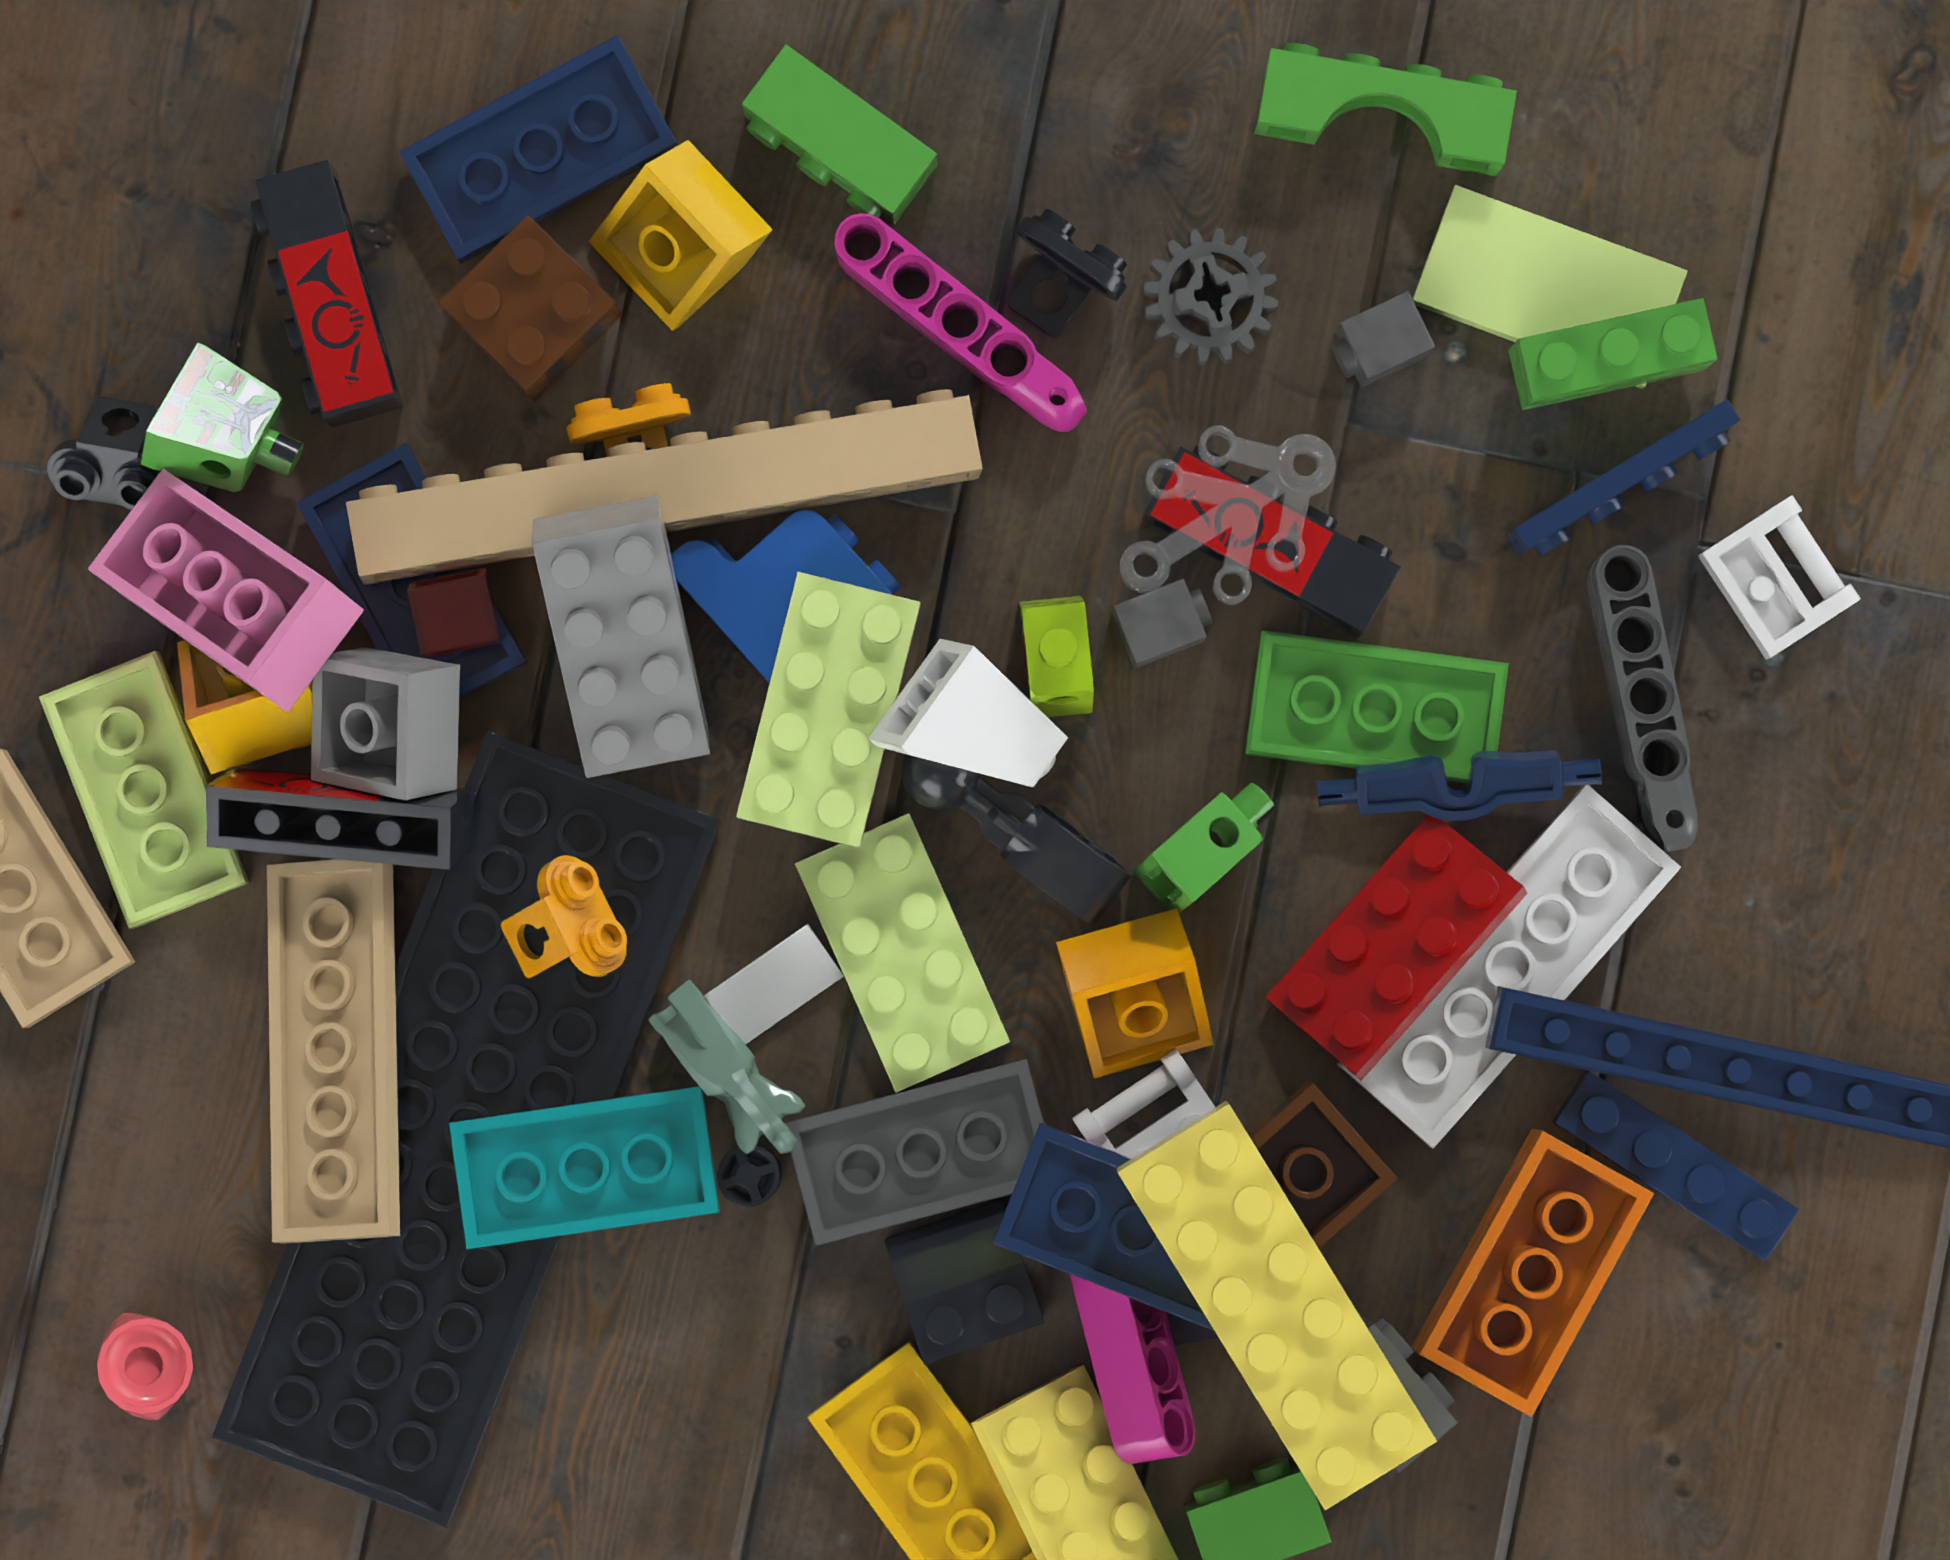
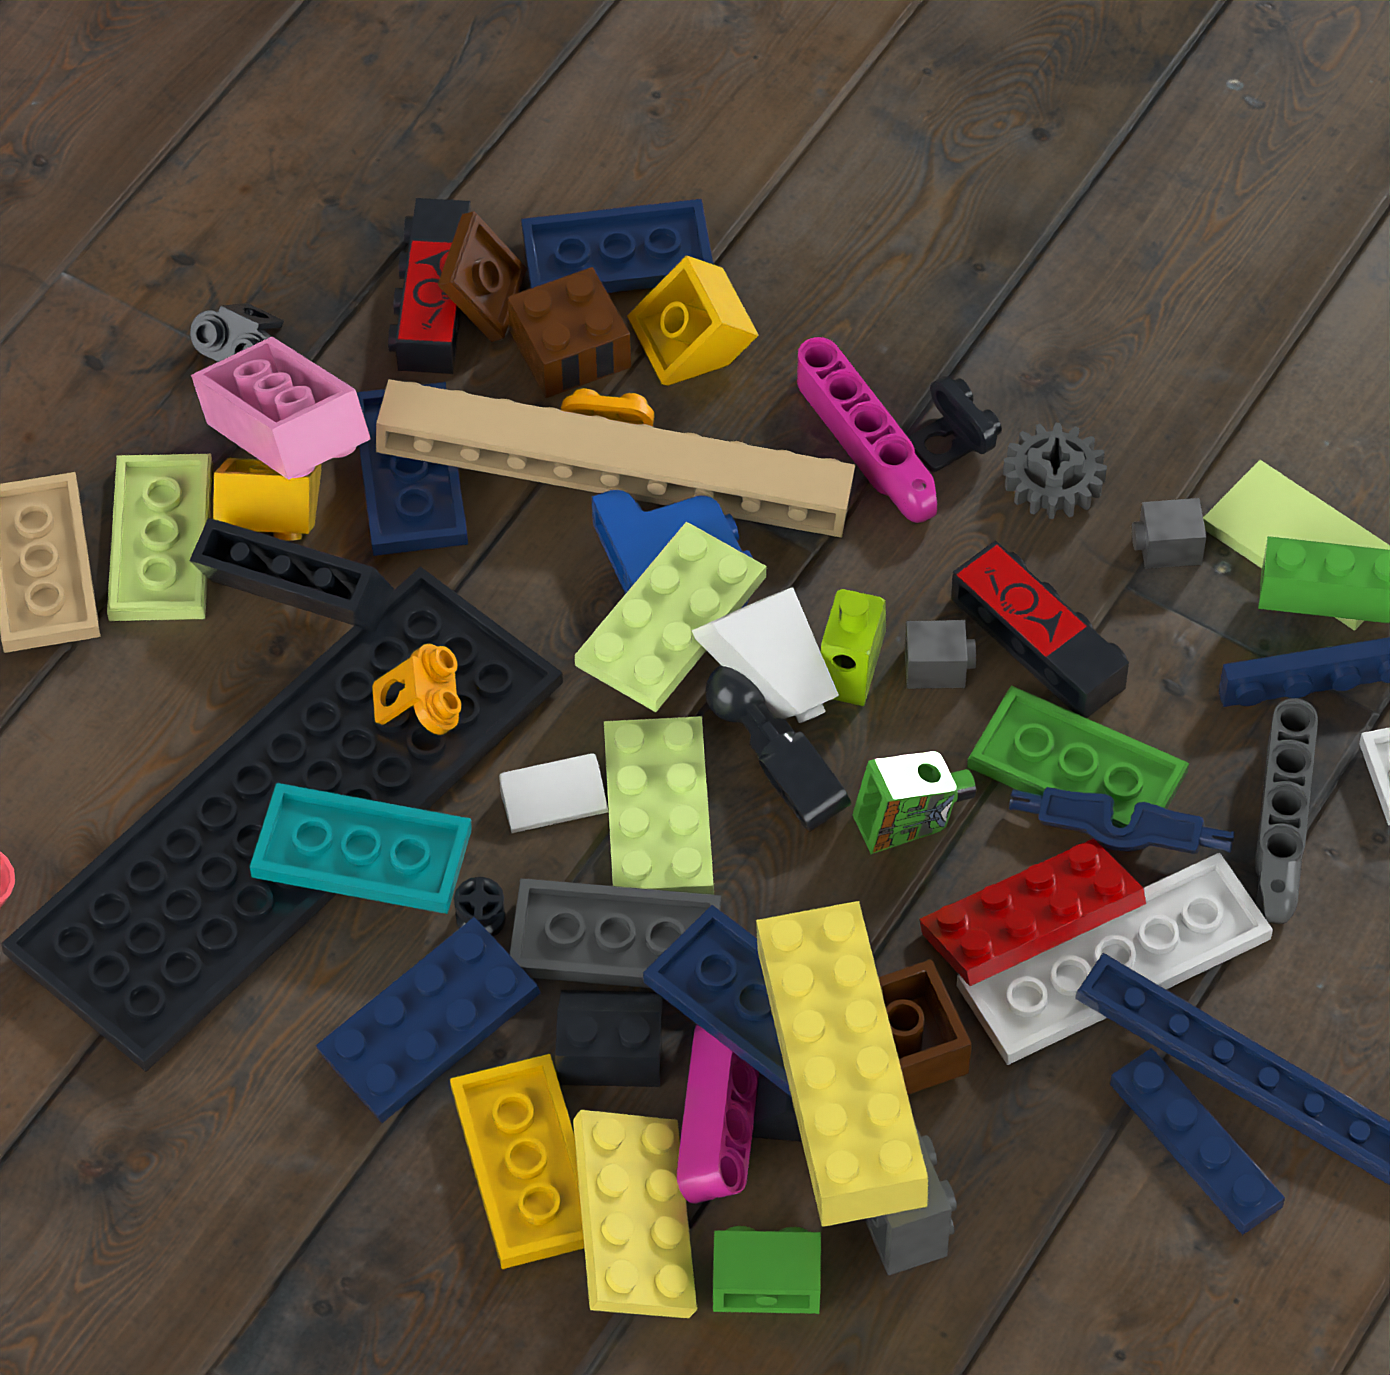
camera: 25 degrees right, 30 degrees down
(218, 426) = (321, 326): torso -> none
(332, 1051) = (213, 720): tan plate -> none
(385, 723) = (355, 515): light grey brick -> none
(390, 271) = (481, 275): none -> reddish brown plate
(454, 612) = (431, 483): clear red piece -> none
(621, 636) = (542, 521): light grey brick -> none
(726, 1070) = (493, 807): sand green animal -> none
(750, 1347) = (428, 1019): none -> dark blue plate
(837, 136) = (829, 298): bright green brick -> none
(1135, 992) = (820, 869): light orange slope -> none
(1236, 507) = (1017, 586): clear plant -> none
(1461, 119) = (1177, 374): bright green arch -> none
(1532, 1271) = (1054, 1158): orange brick -> none

